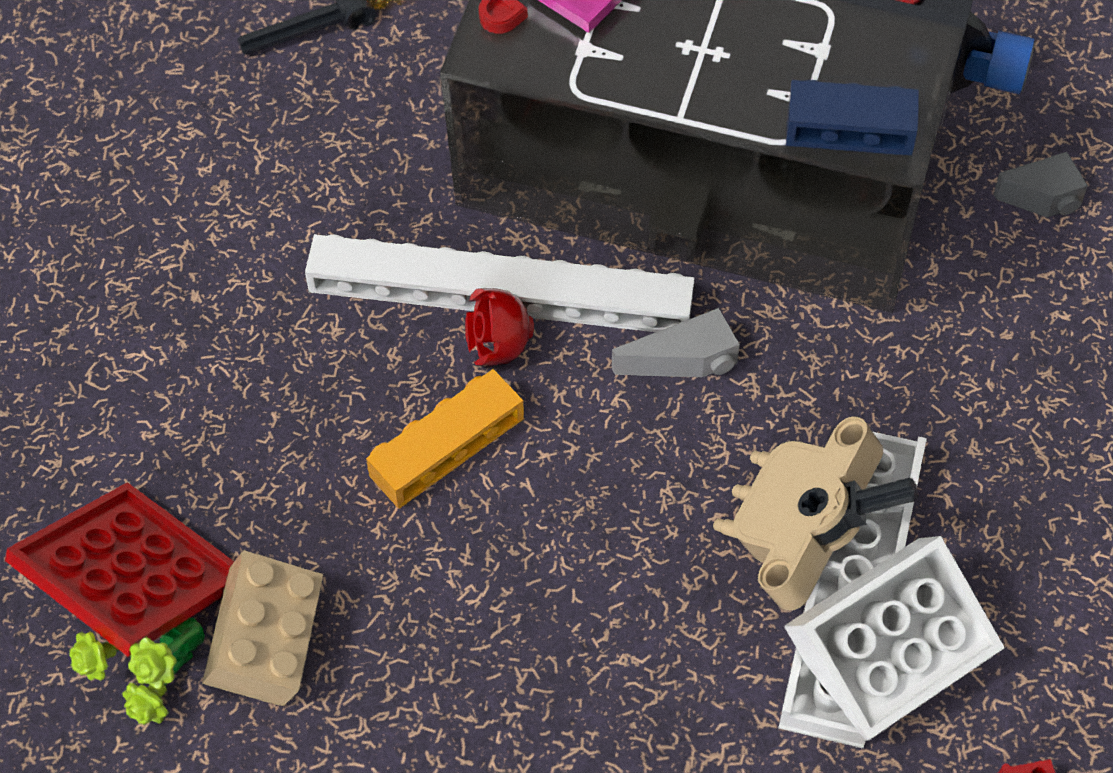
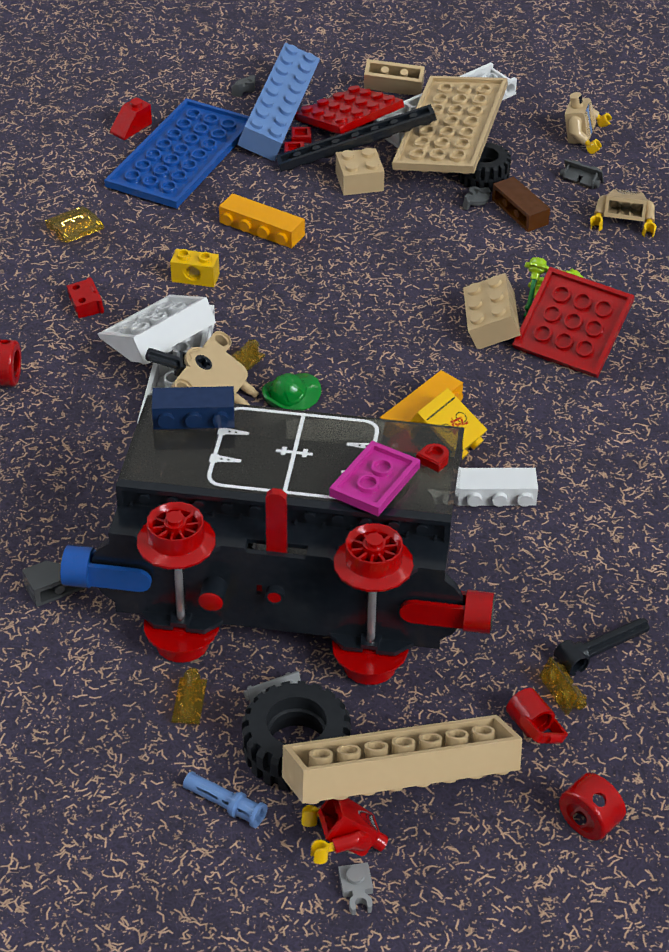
camera: 170 degrees right, 15 degrees down
(419, 366) = (450, 411): none -> yellow panel
(659, 519) = (292, 391): none -> green hat
(734, 600) = (249, 354): none -> clear yellow hinge

